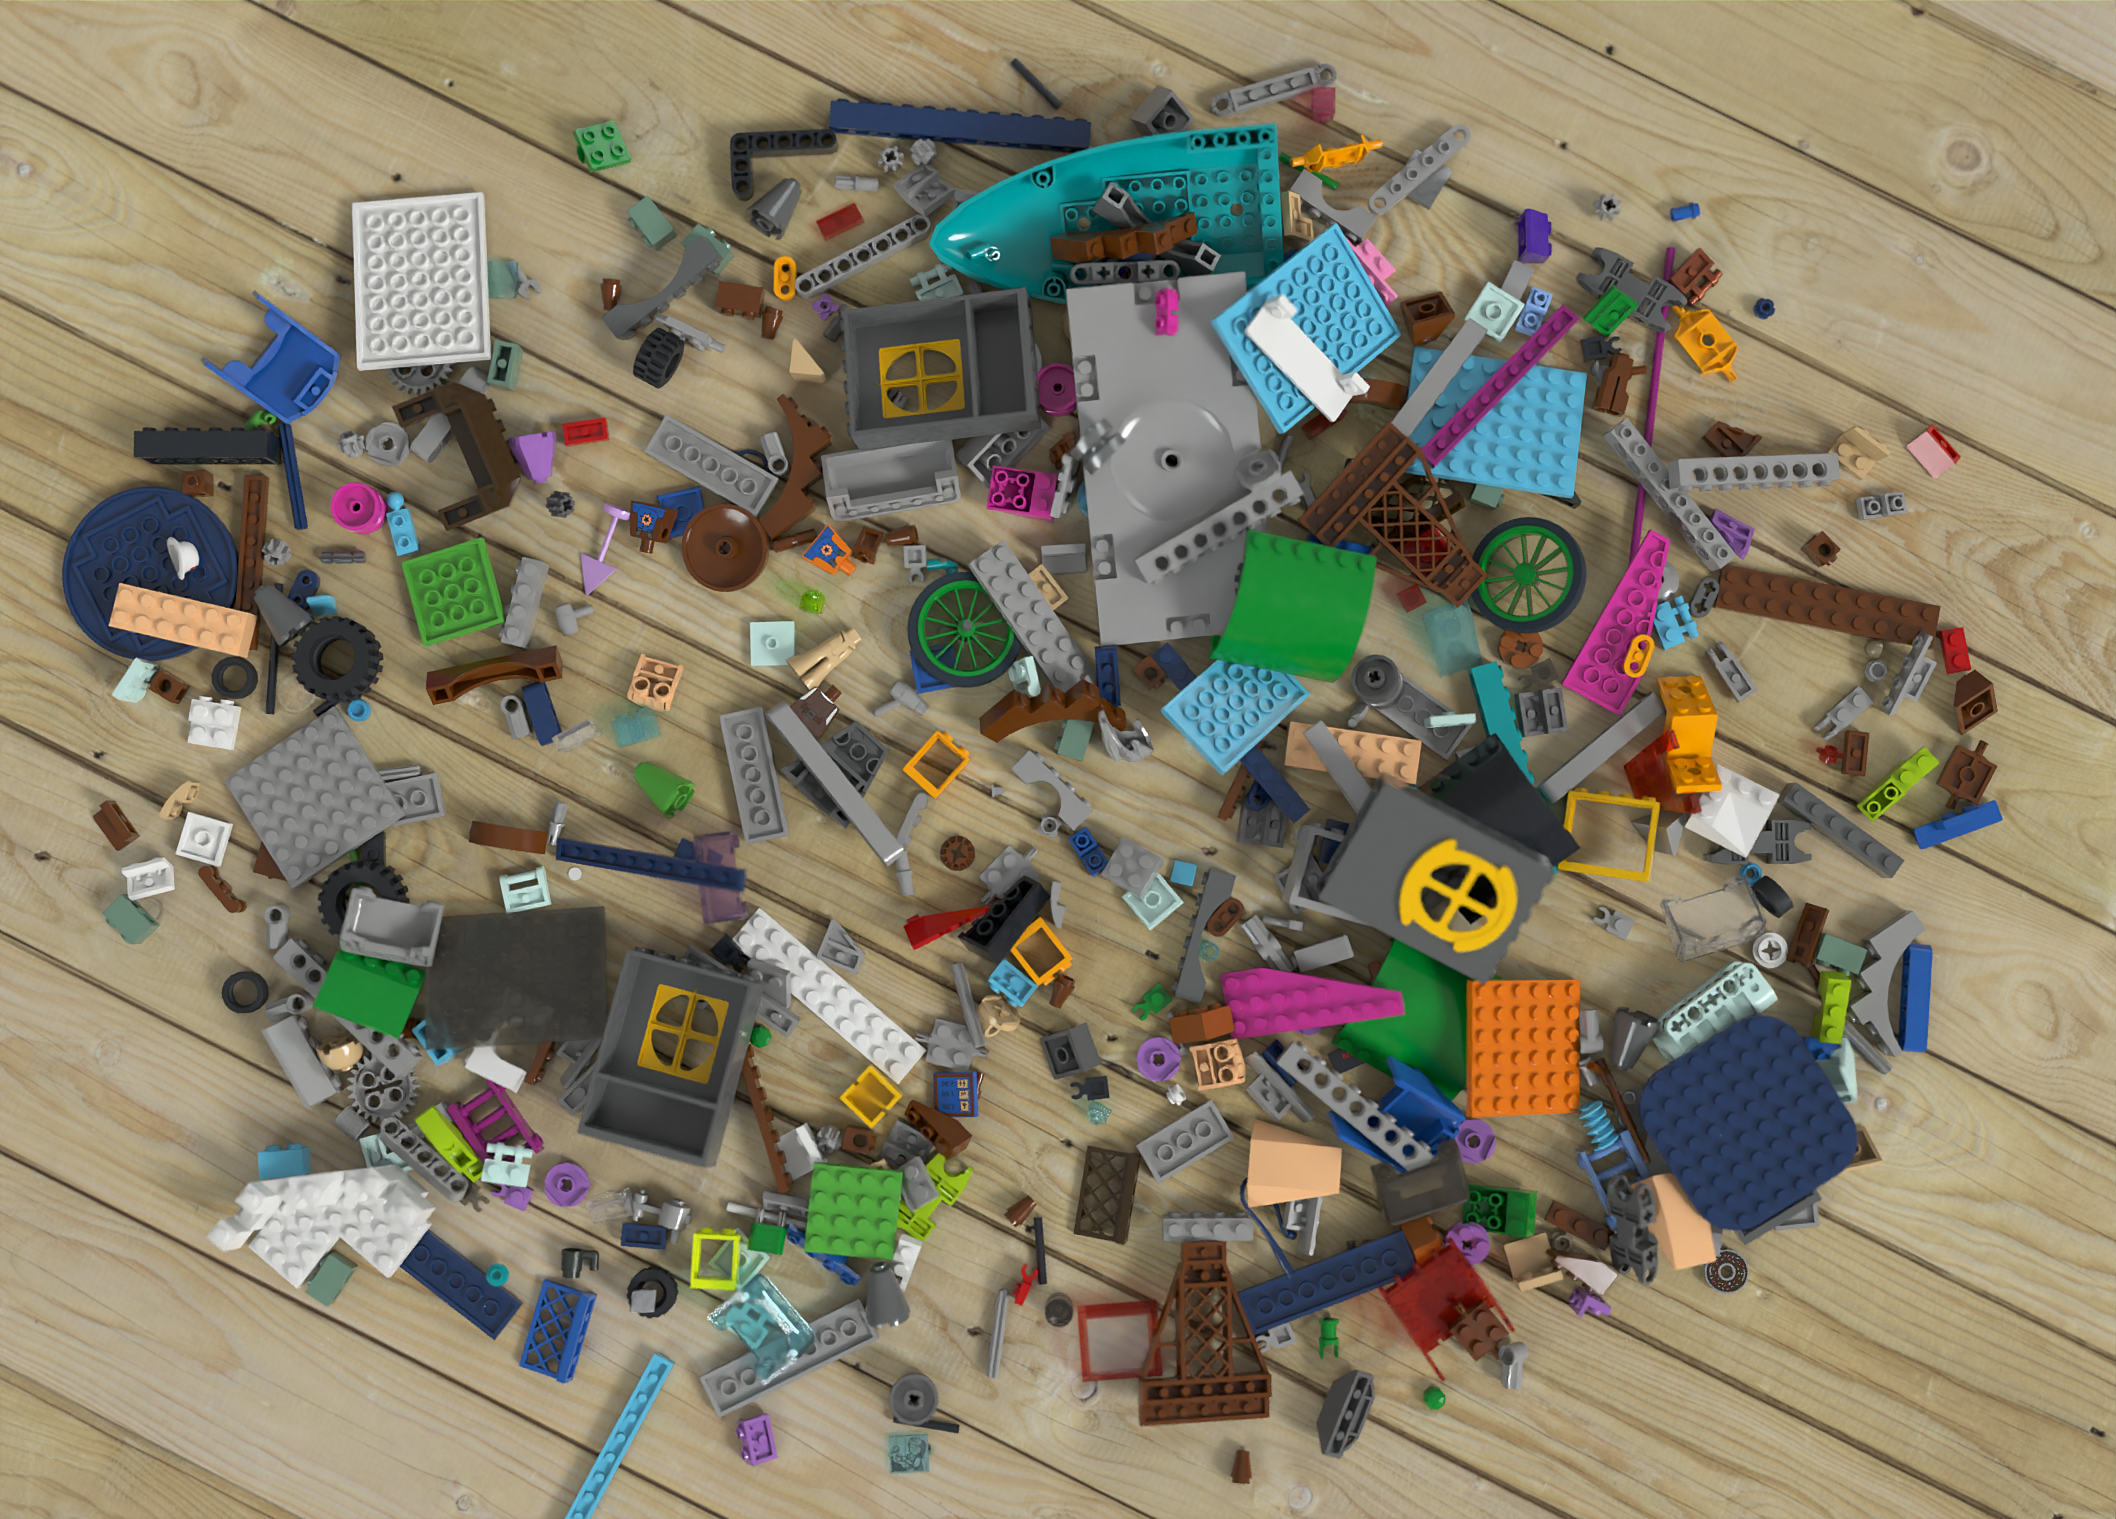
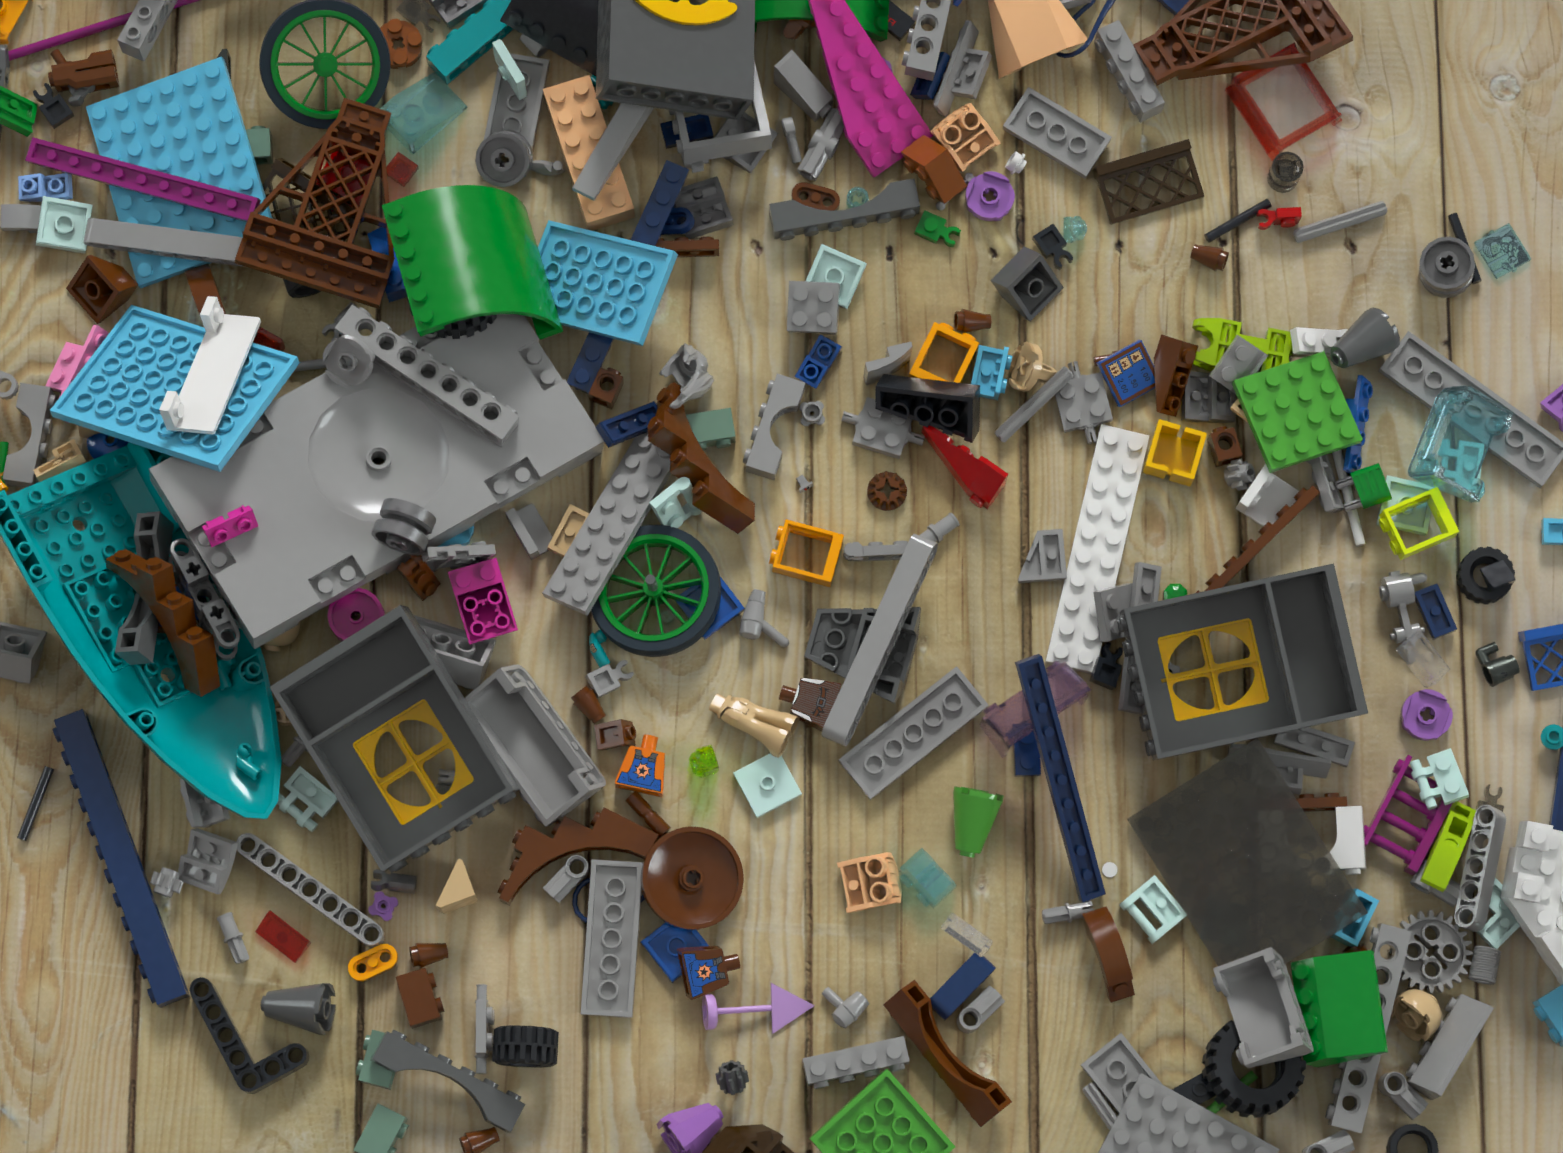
camera: 120 degrees left, 10 degrees down
(515, 1195) = (1467, 762): medium lavender plate -> none
(585, 432) = (641, 1091): red plate -> none
(889, 153) = (185, 908): light grey gear -> none
(1183, 873) = (792, 259): medium azure slope -> none

